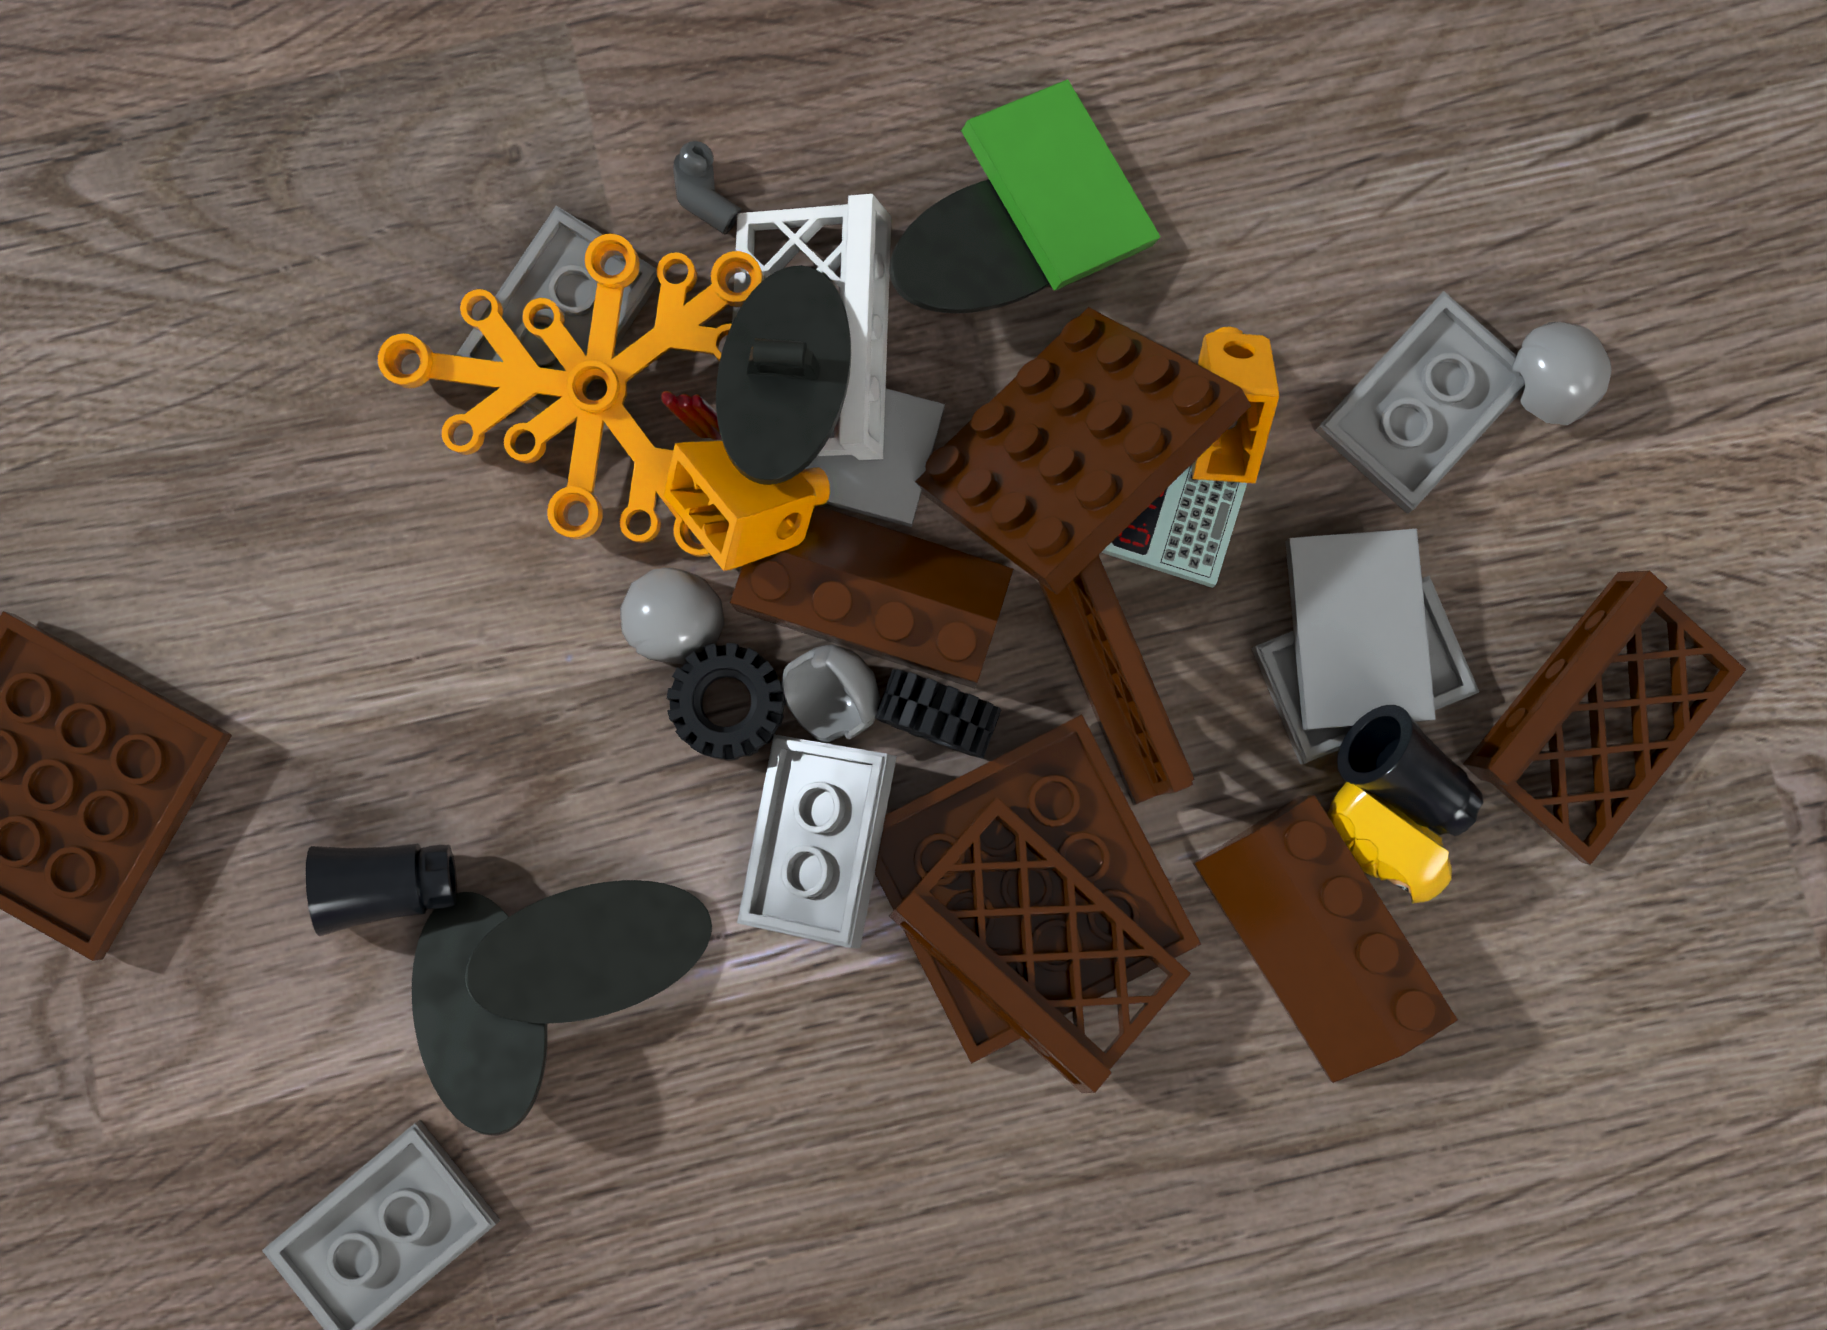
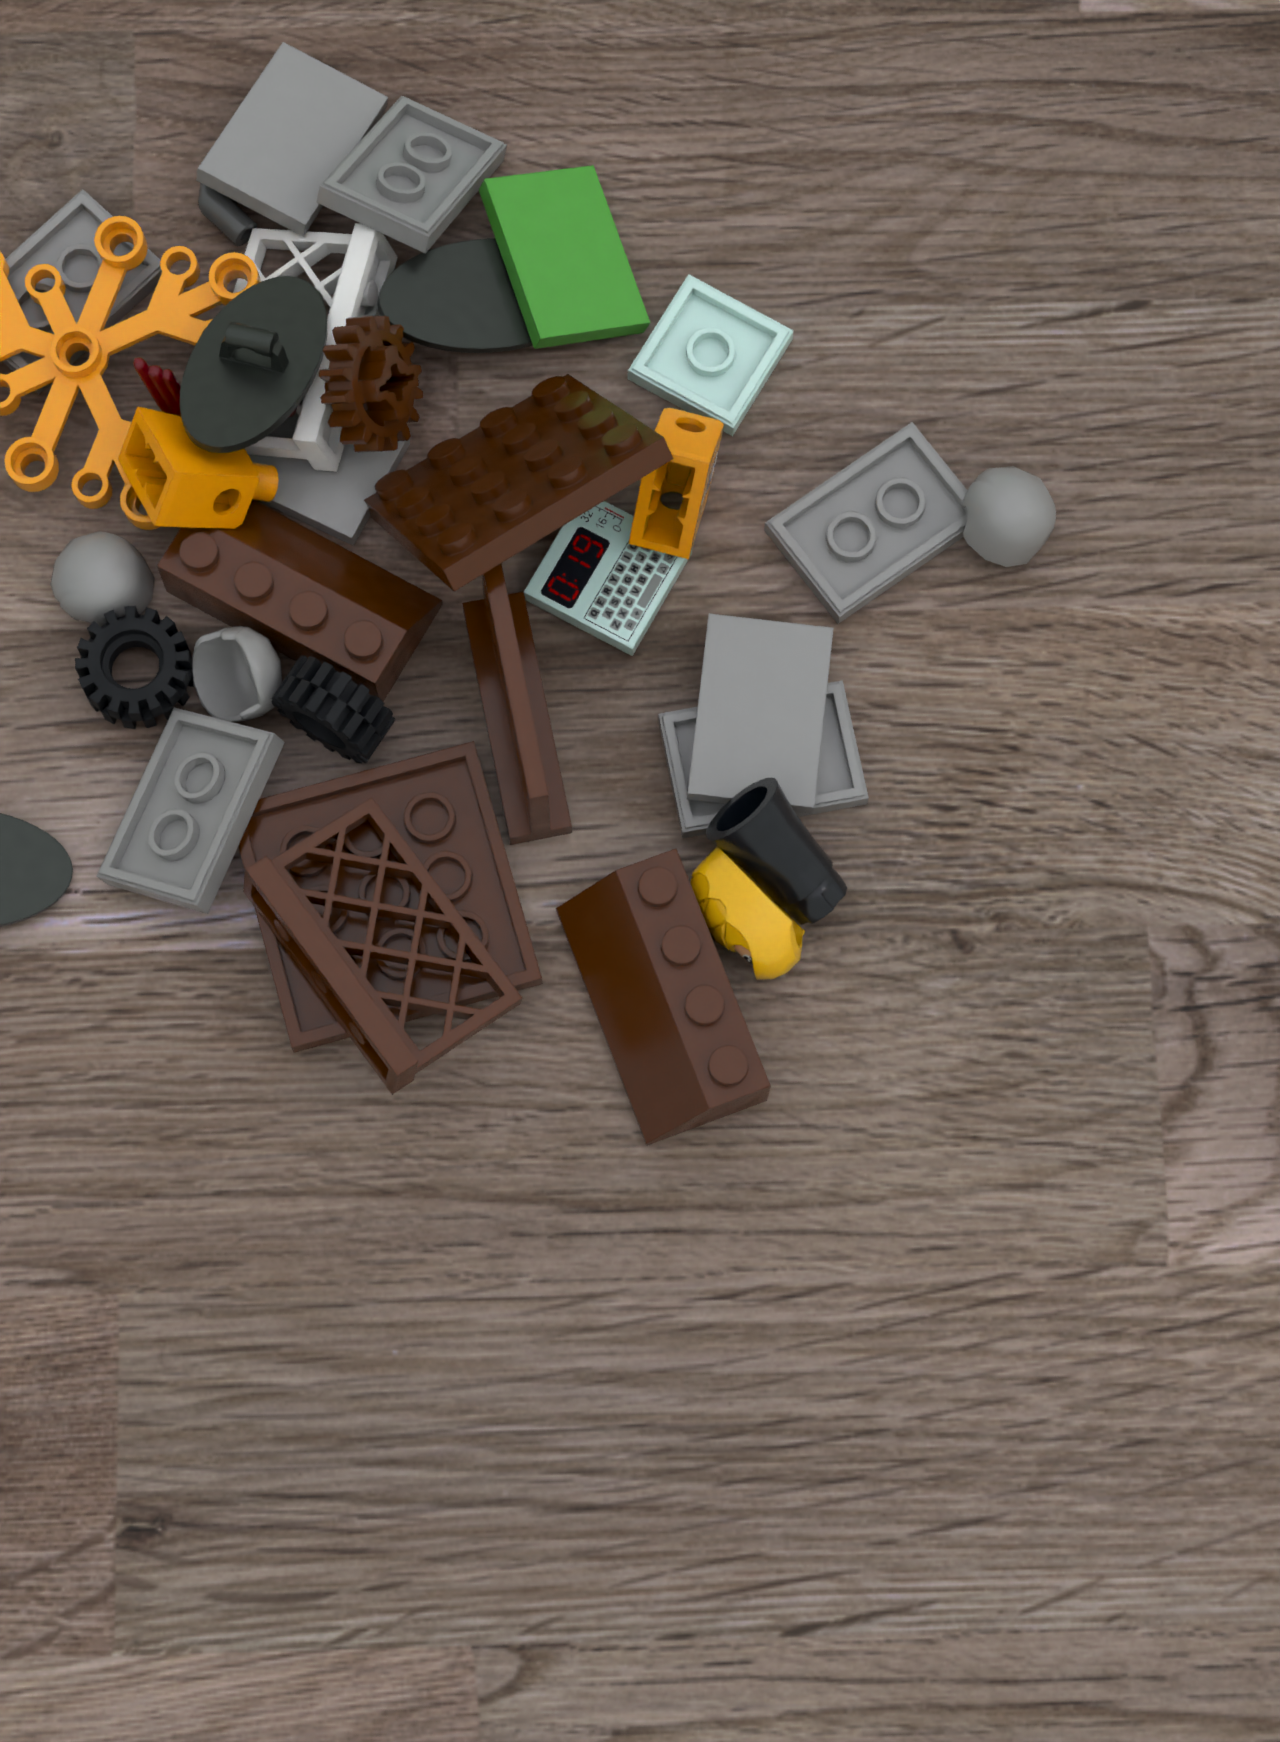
camera: 10 degrees right, 10 degrees down
(758, 111) = (290, 137): none -> light grey tile
(891, 128) = (412, 174): none -> light grey tile
(905, 368) = (371, 384): none -> reddish brown gear
(1226, 257) = (710, 354): none -> light aqua tile
(1578, 670) = (957, 801): reddish brown fence -> none

